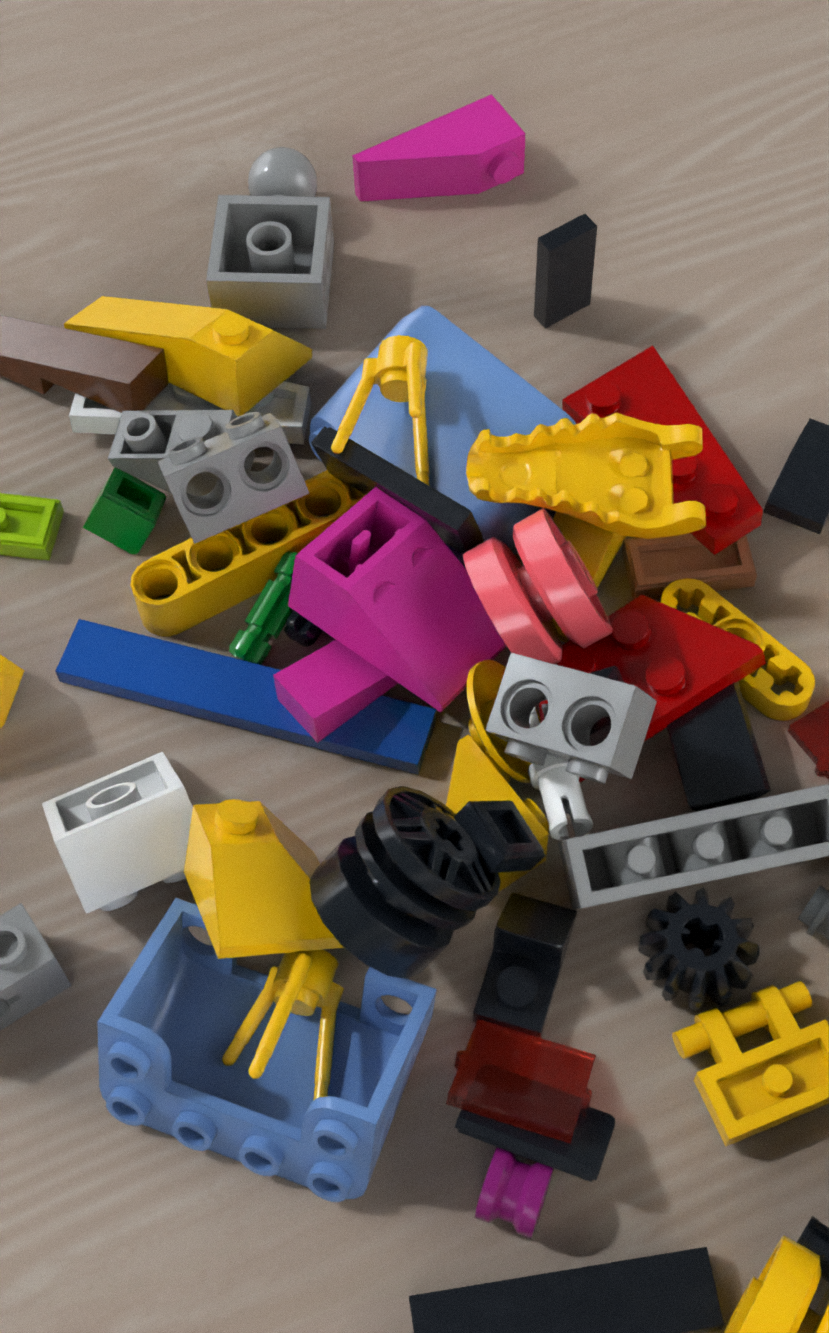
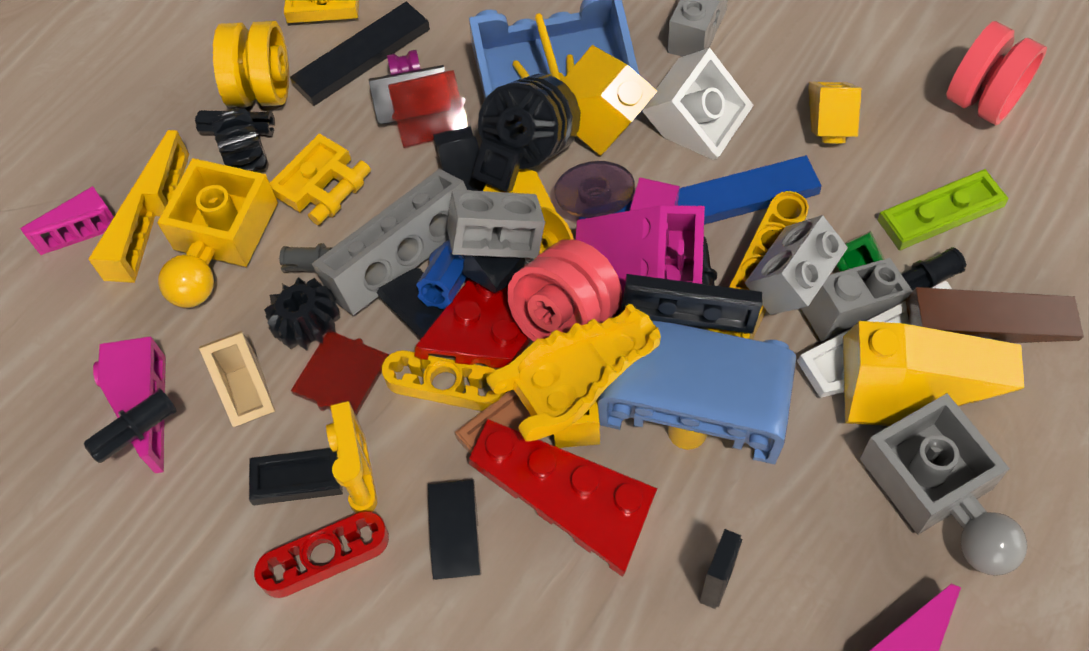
camera: 150 degrees right, 0 degrees up
(65, 448) = (935, 270): none -> black axle
(266, 616) = (721, 246): green axle -> none
(355, 749) = (594, 189): none -> dish
(401, 378) = (742, 356): yellow plant -> none
(672, 743) = (442, 277): none -> blue piece
(690, 969) = (370, 197): black gear -> none

